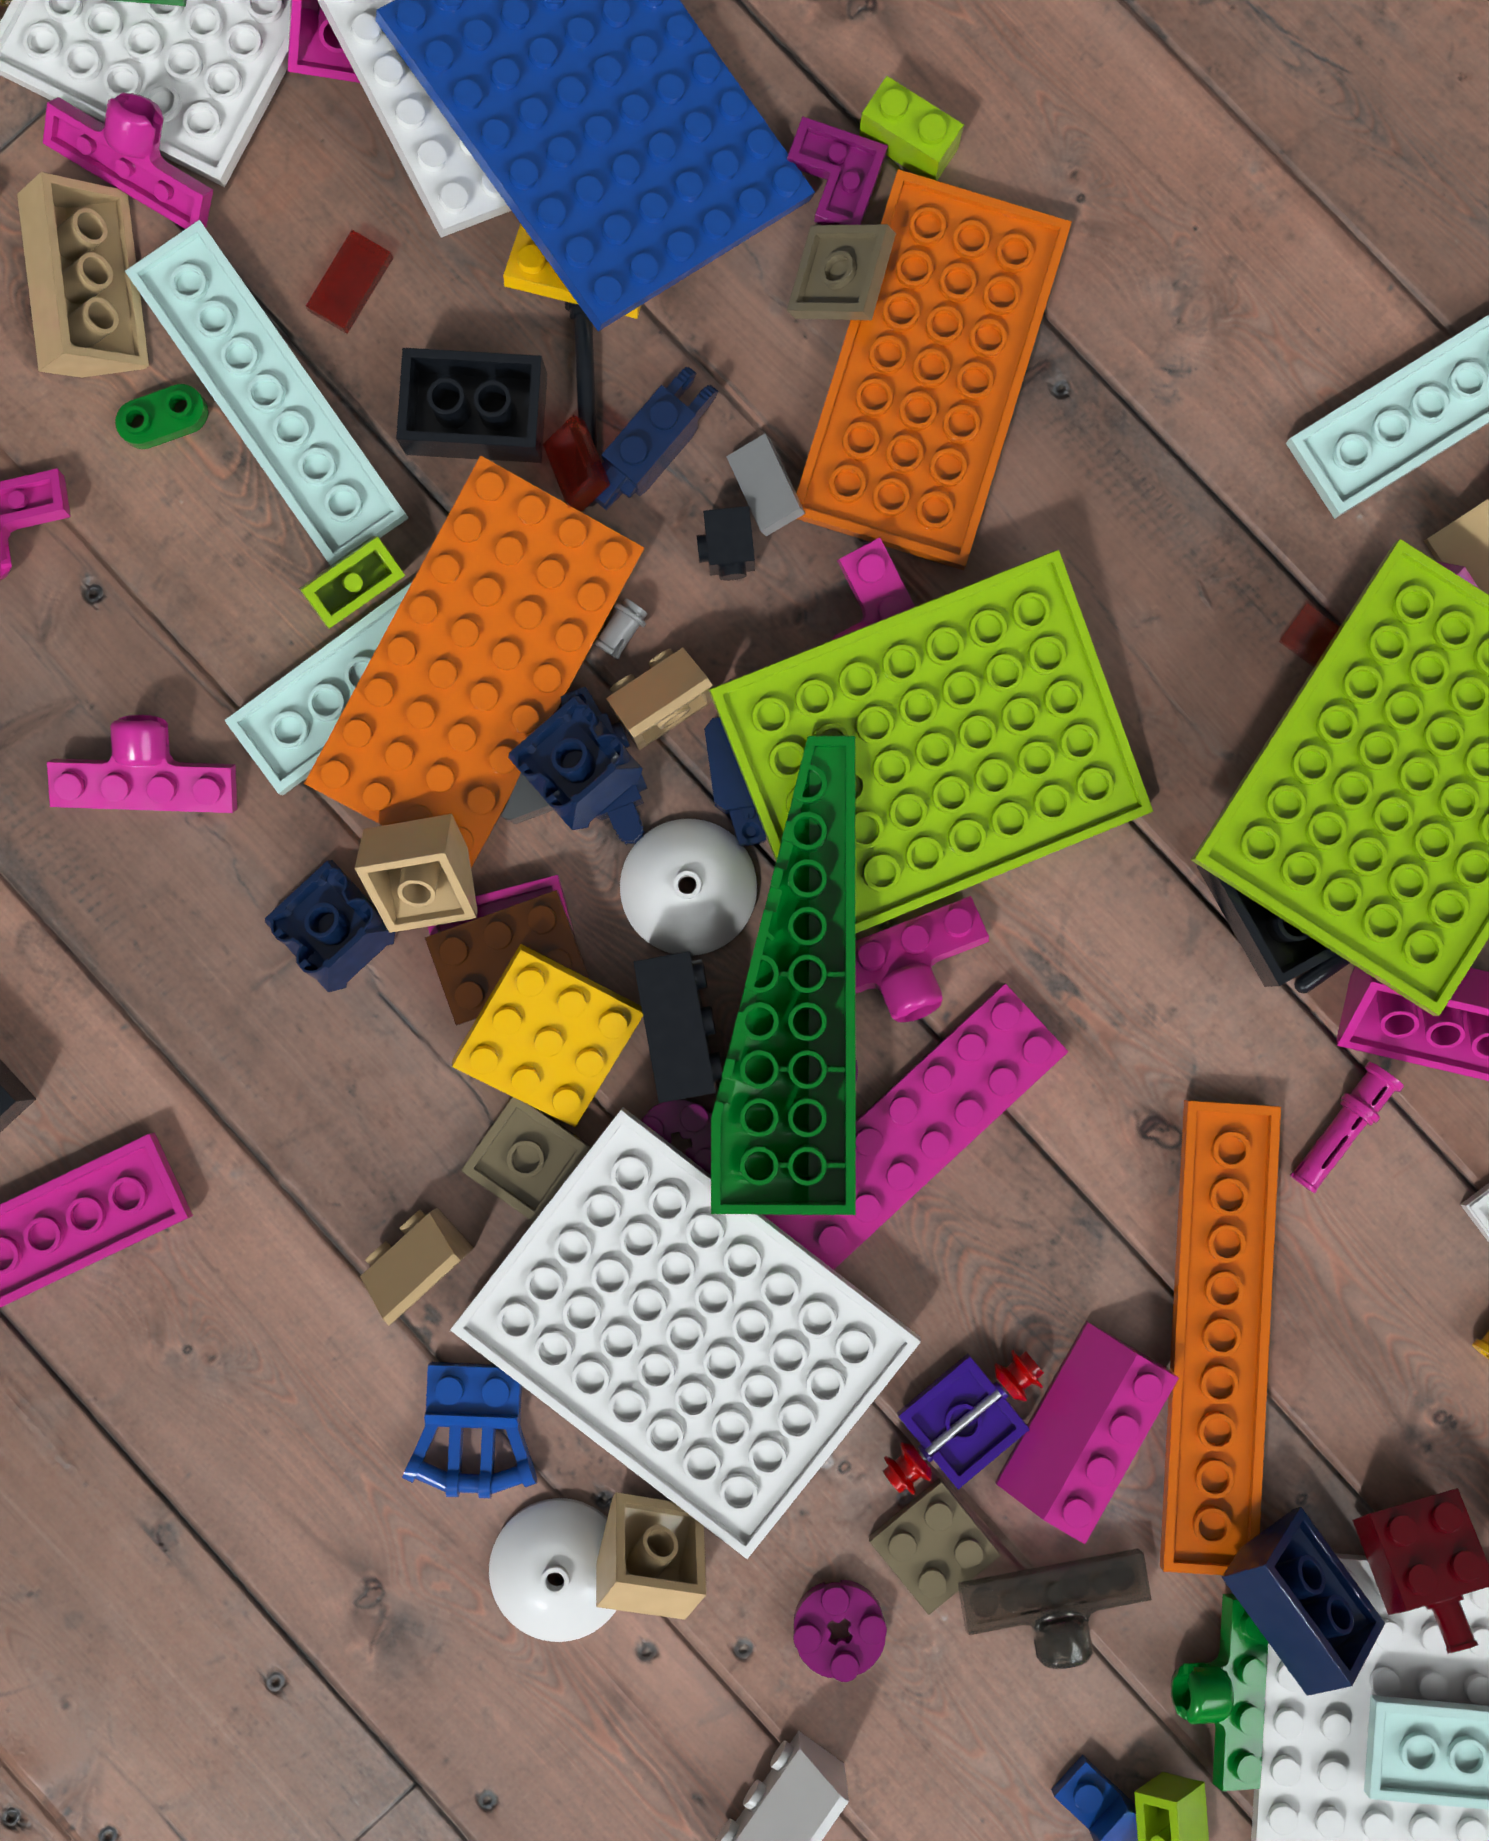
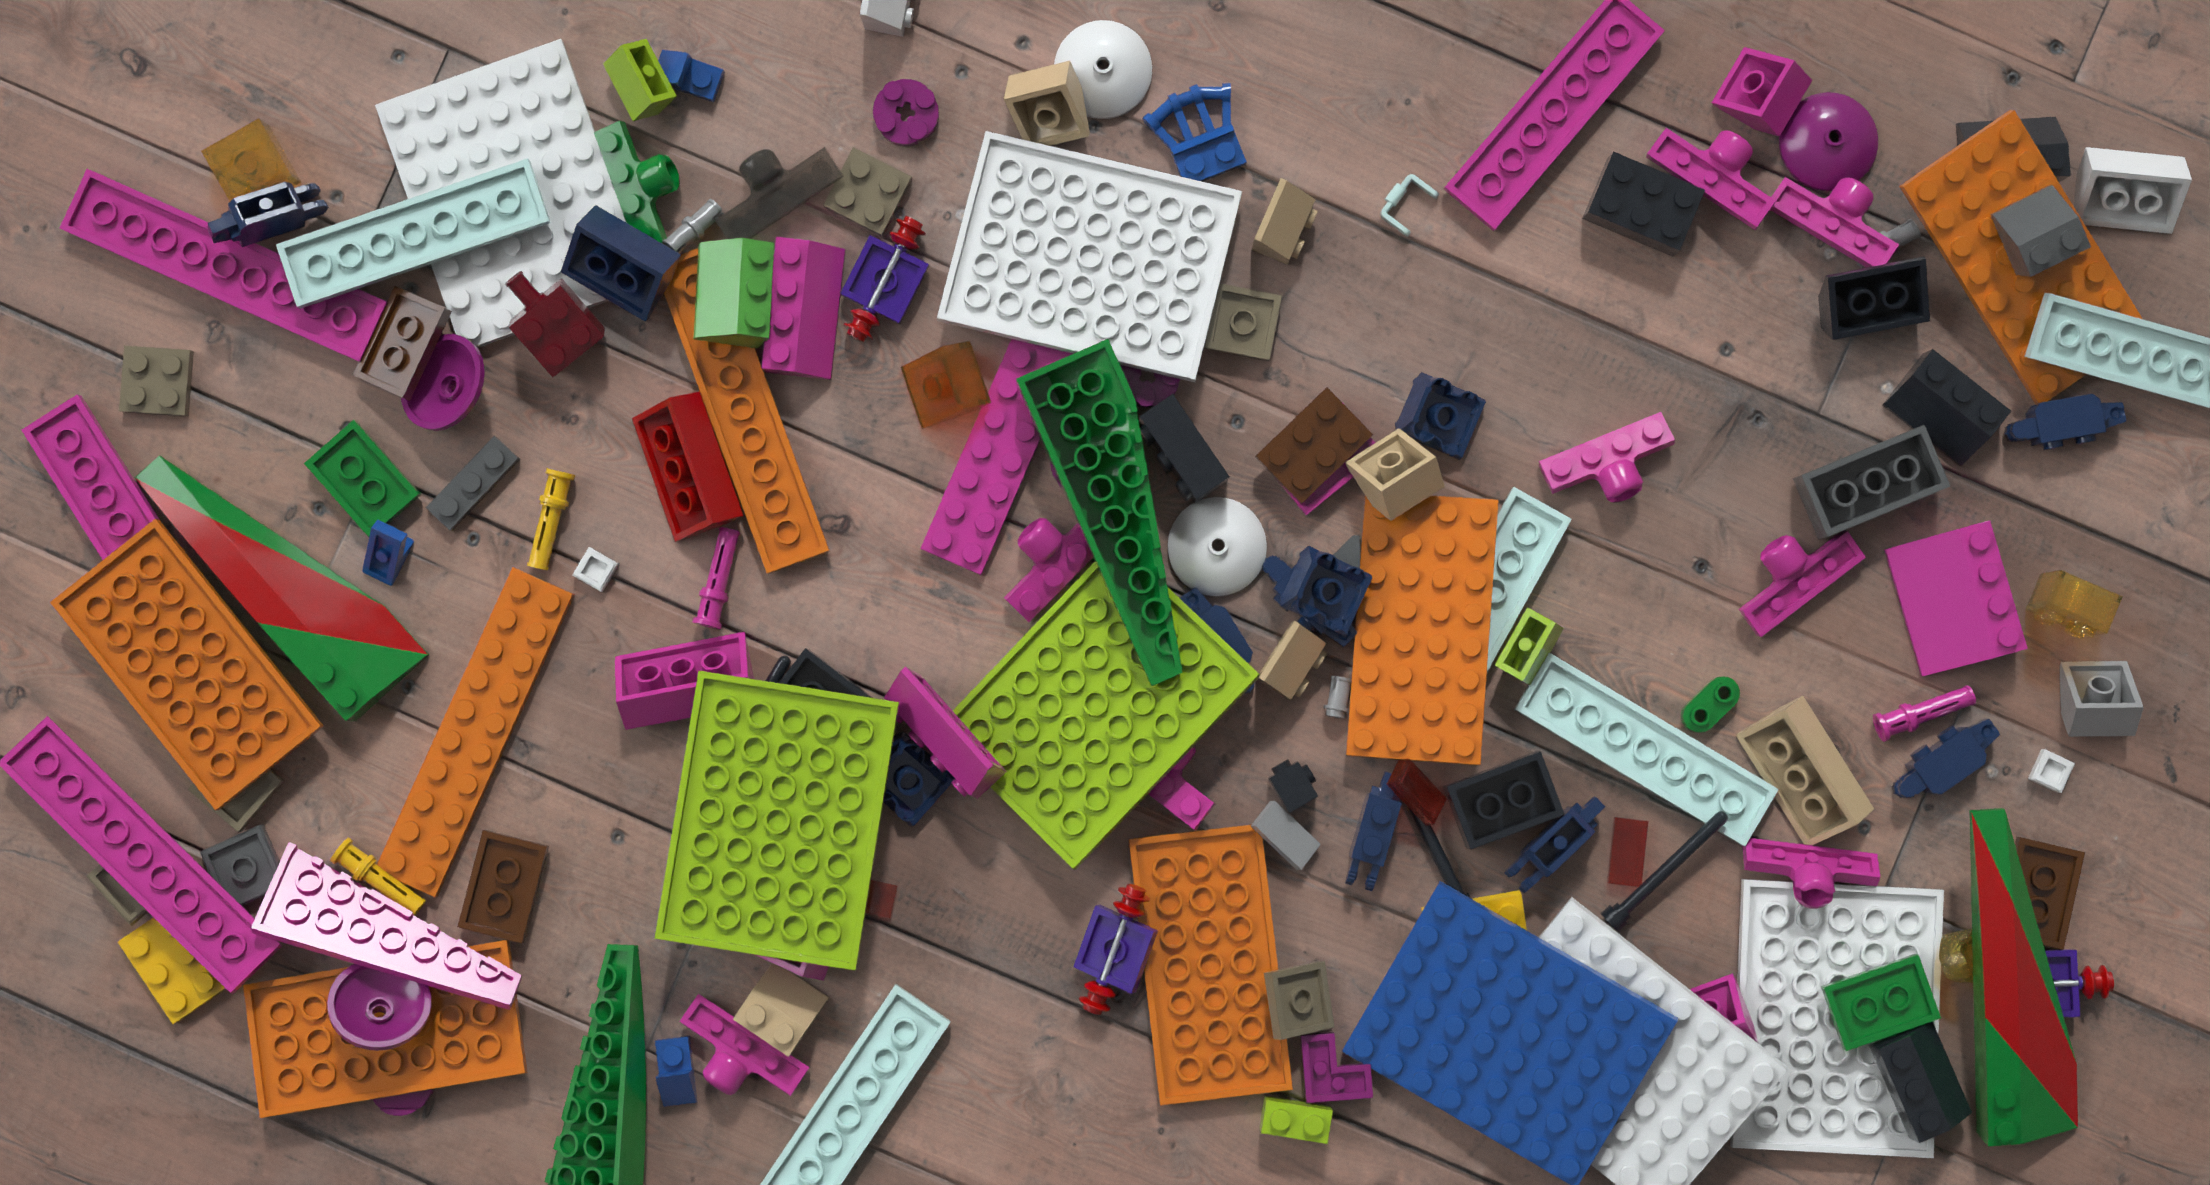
camera: 150 degrees right, 0 degrees up
(255, 1235) = (1395, 196): none -> light aqua piece
(394, 207) = (1619, 913): none -> black piece
(431, 320) = (1557, 842): none -> dark blue hinge
(547, 1036) = (1264, 406): yellow plate -> none
(943, 1249) = (945, 384): none -> clear orange slope
(1044, 435) = (1115, 949): none -> dark purple plate
(1146, 797) = (944, 734): none -> dark pink slope
(1172, 1495) = (734, 292): none -> bright green slope
(1184, 1603) = (694, 226): none -> light grey pin
(1205, 763) = (913, 780): none -> dark blue slope
(1322, 1292) = (687, 466): none -> red slope

